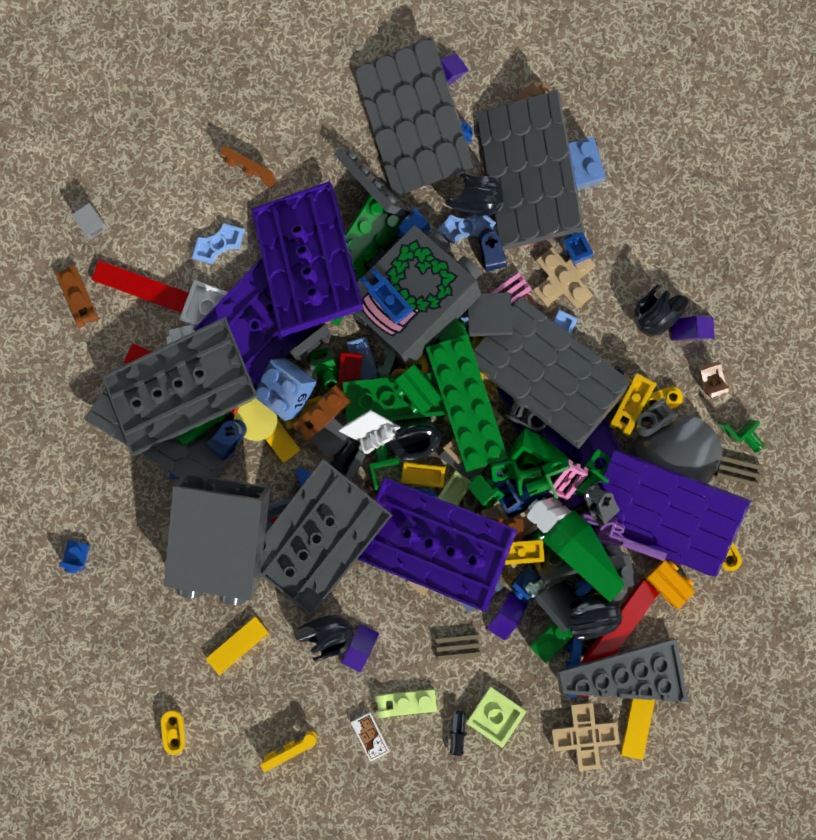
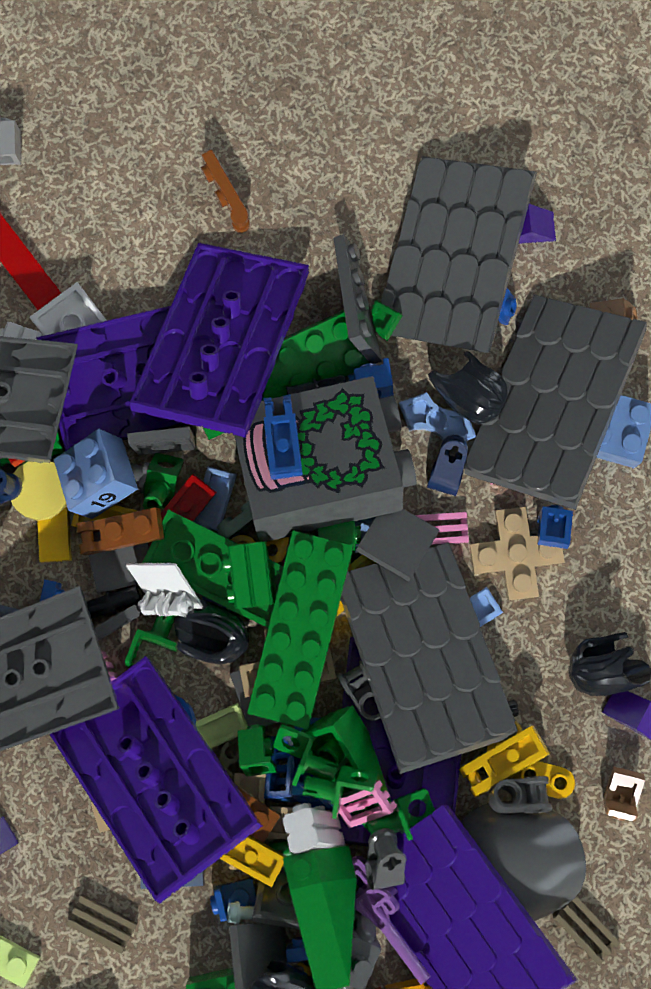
camera: 35 degrees right, 5 degrees down
(225, 239) = (145, 259): light blue tile -> none
(396, 185) = (384, 319): none -> green tile
(423, 474) = (196, 683): yellow tile -> none
(507, 616) = (185, 925): dark purple slope -> none
(745, 433) = (622, 886): green bracket -> none

